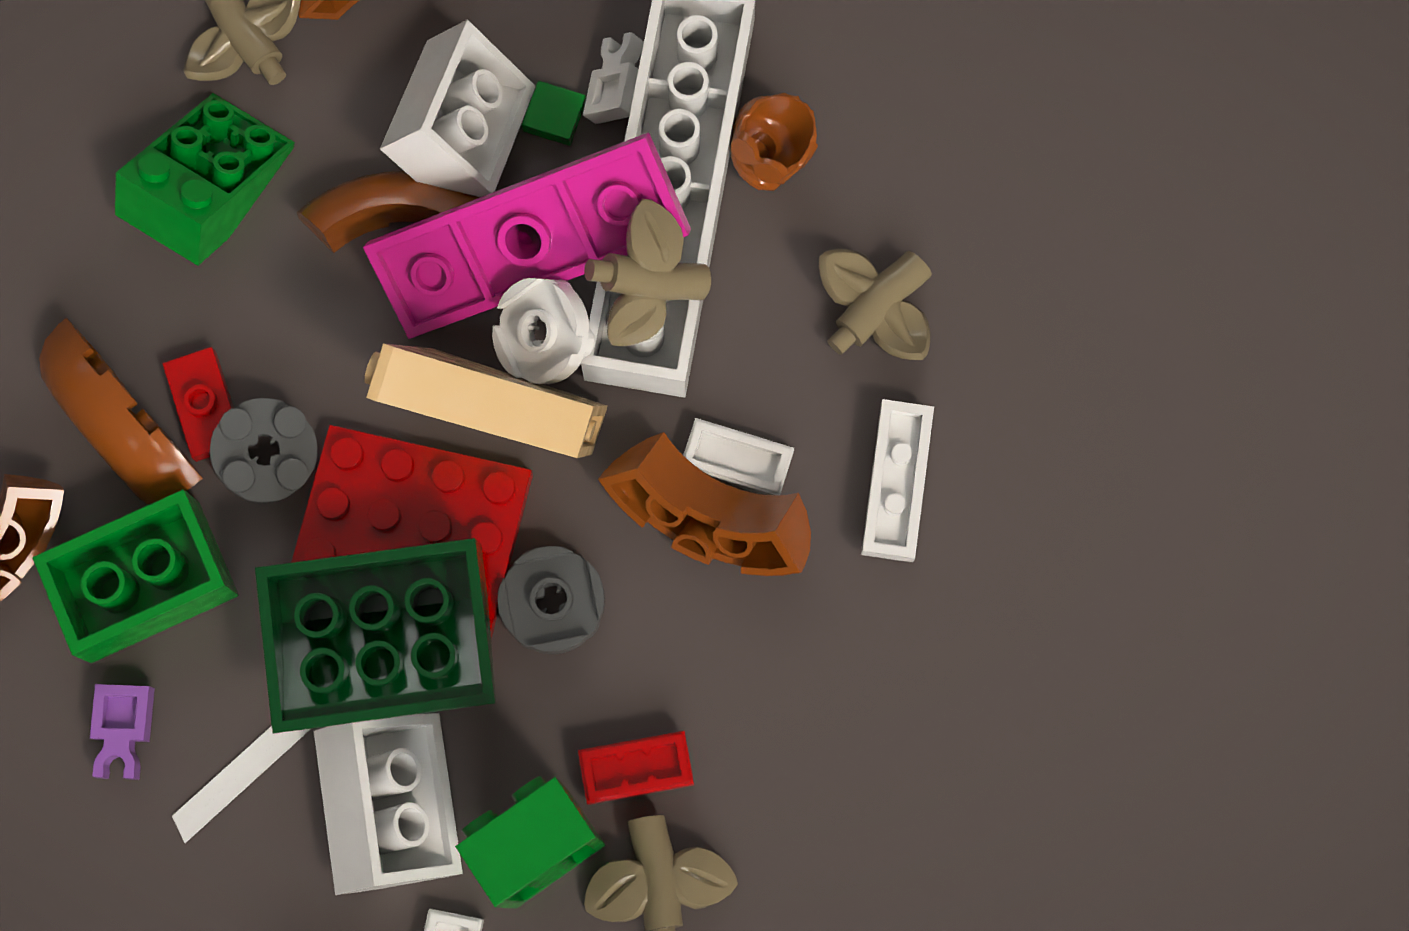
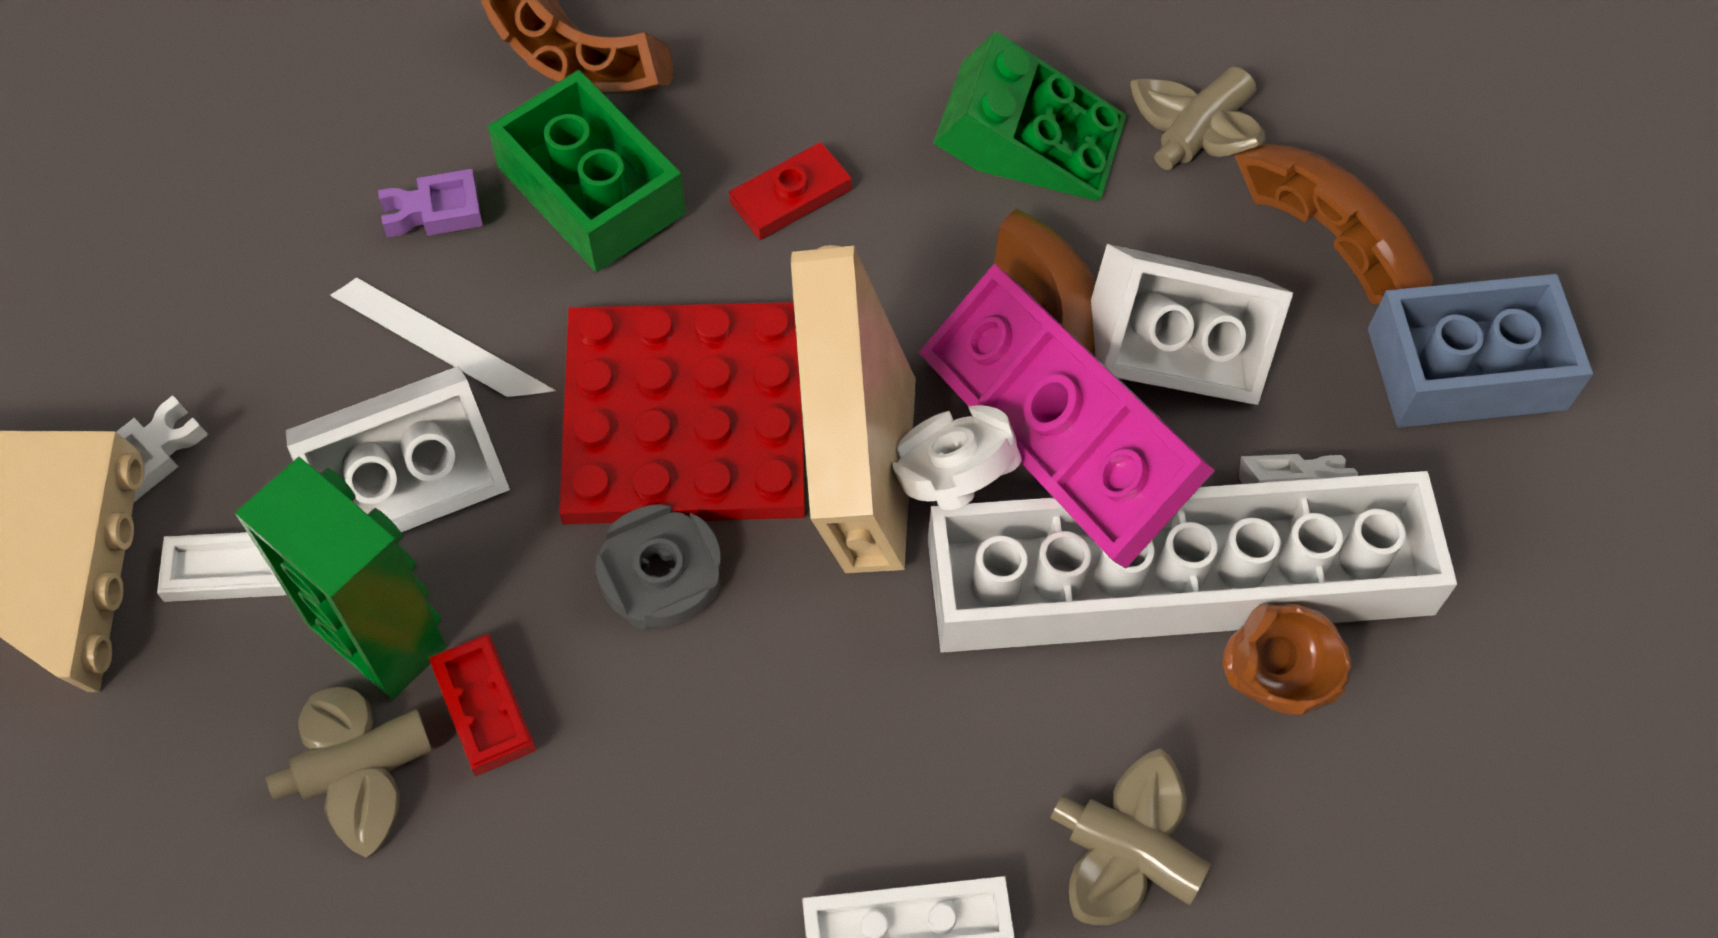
camera: 75 degrees right, 15 degrees down
(103, 414) = (732, 121): dark orange brick -> none
(241, 429) = (728, 226): dark grey plate -> none
(376, 635) = (565, 385): dark green slope -> none
(554, 113) = (1232, 428): green tile -> none
(647, 275) = (1050, 530): dark tan plant -> none
(706, 516) = (803, 706): dark orange brick -> none
(738, 458) = (883, 730): white tile -> none

